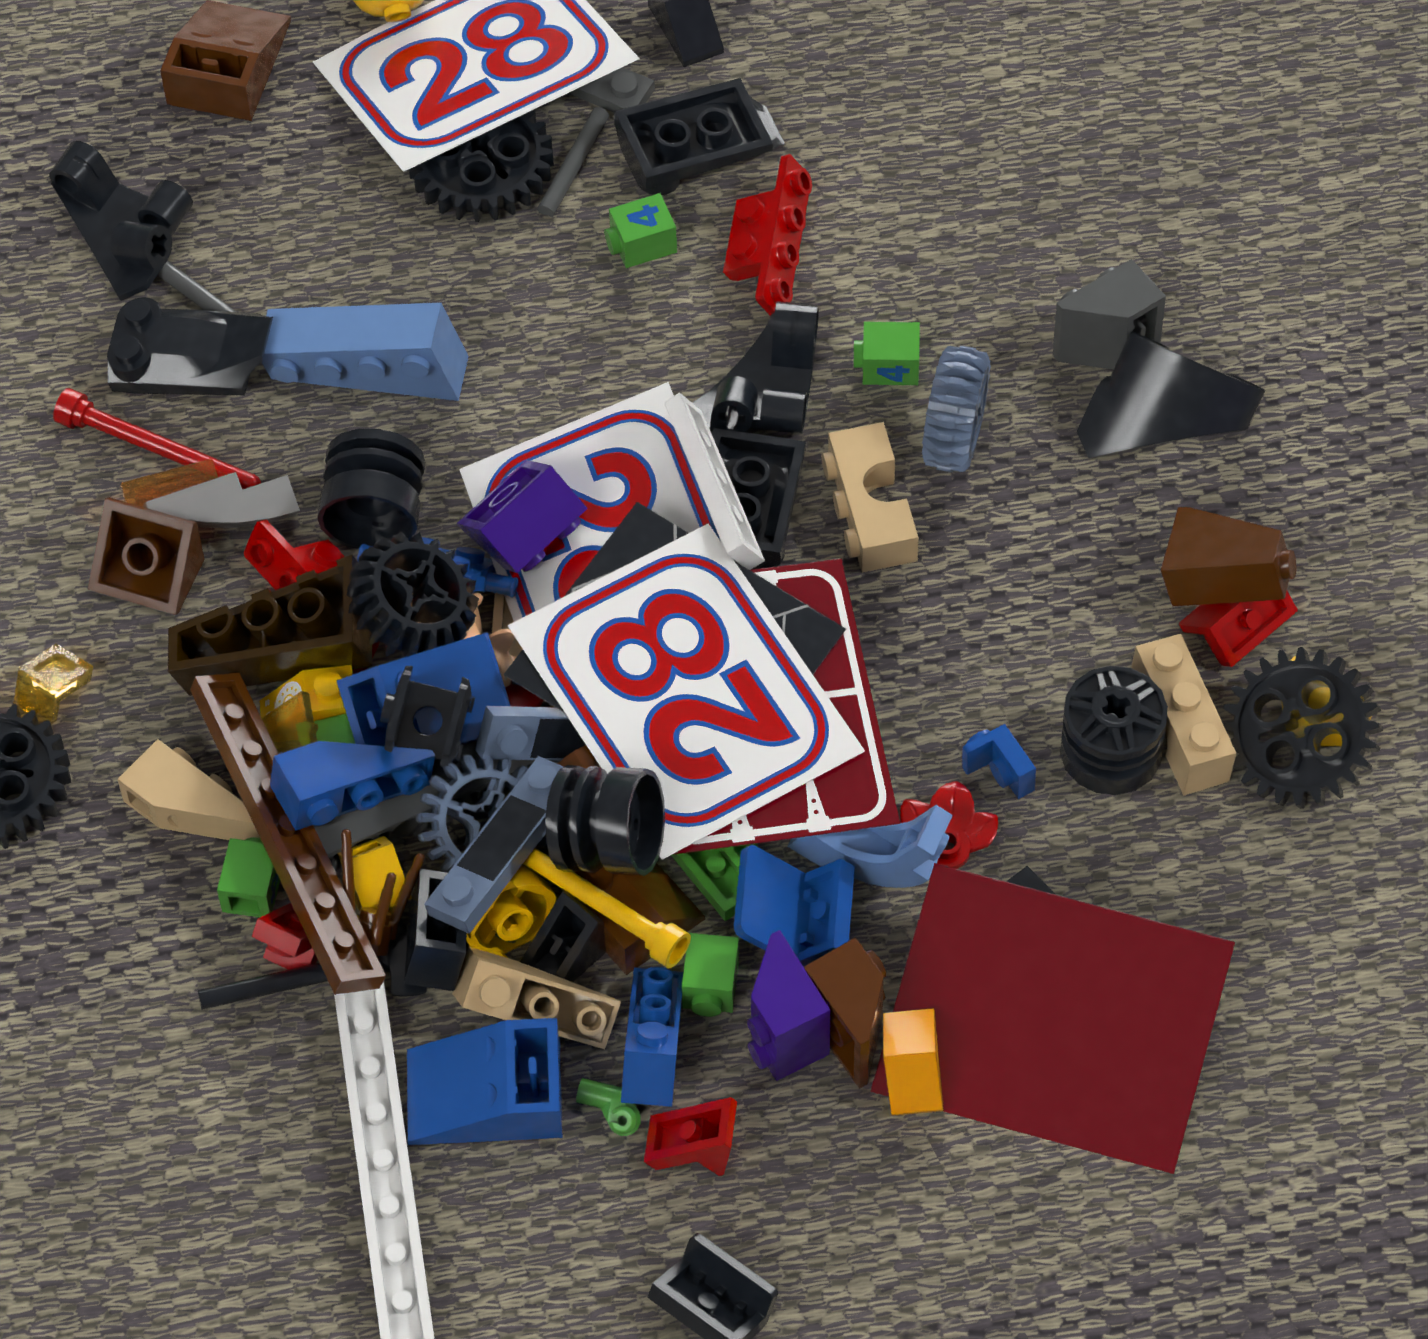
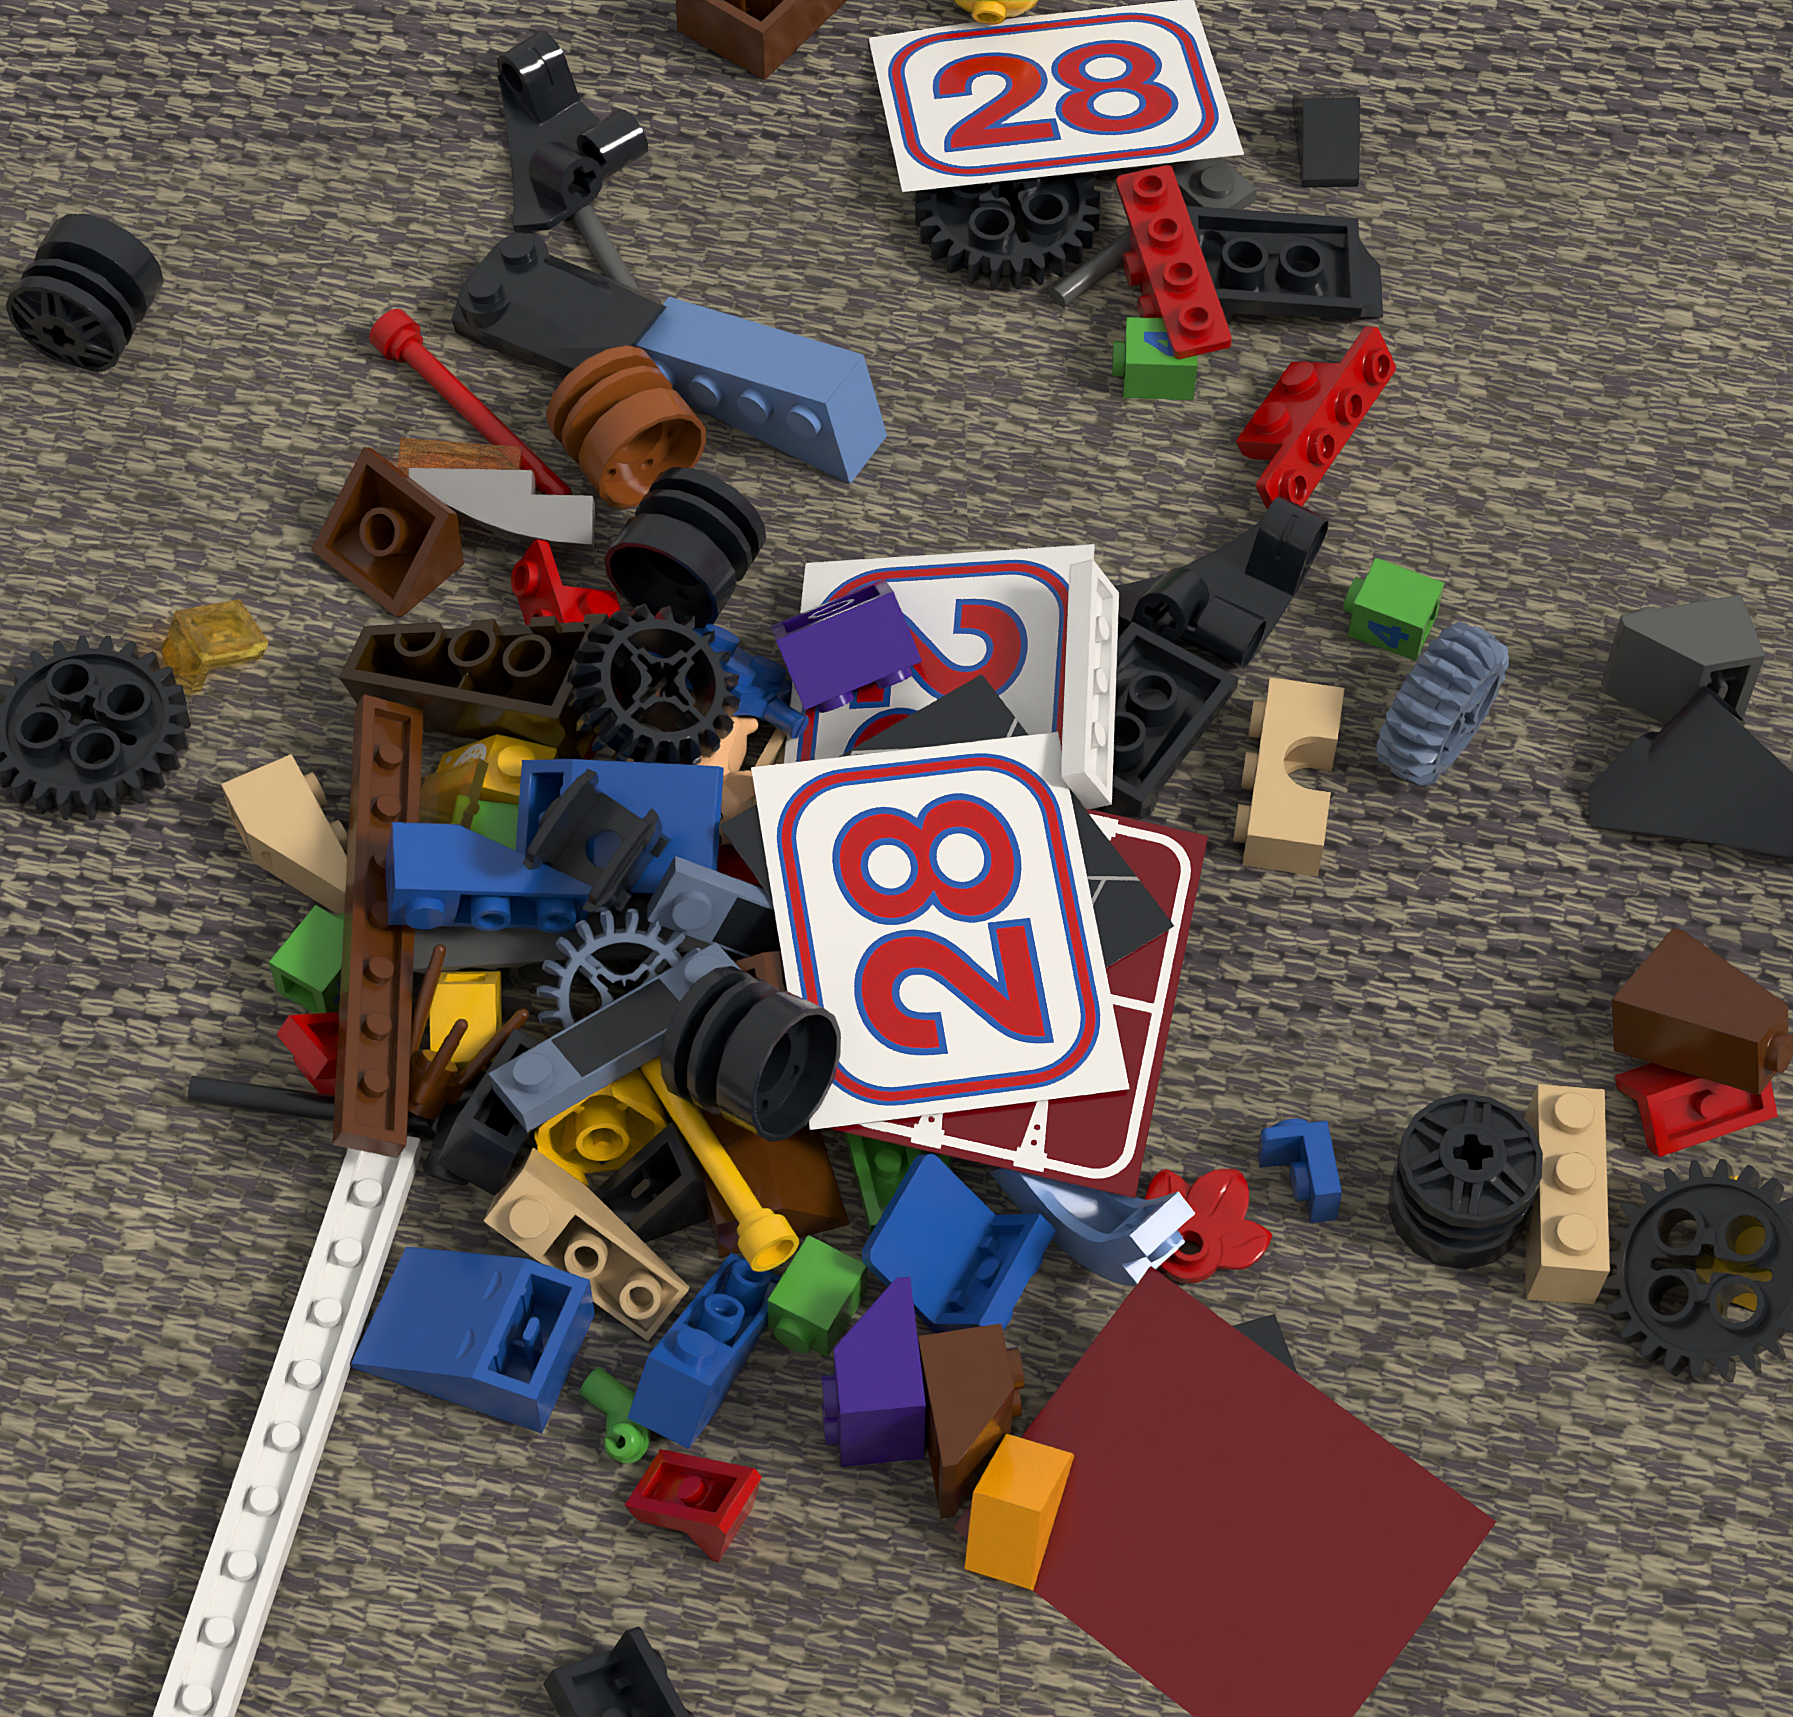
camera: 20 degrees right, 0 degrees up
(284, 415) = (624, 424): none -> dark orange wheel
(622, 159) = (1170, 264): none -> red bracket

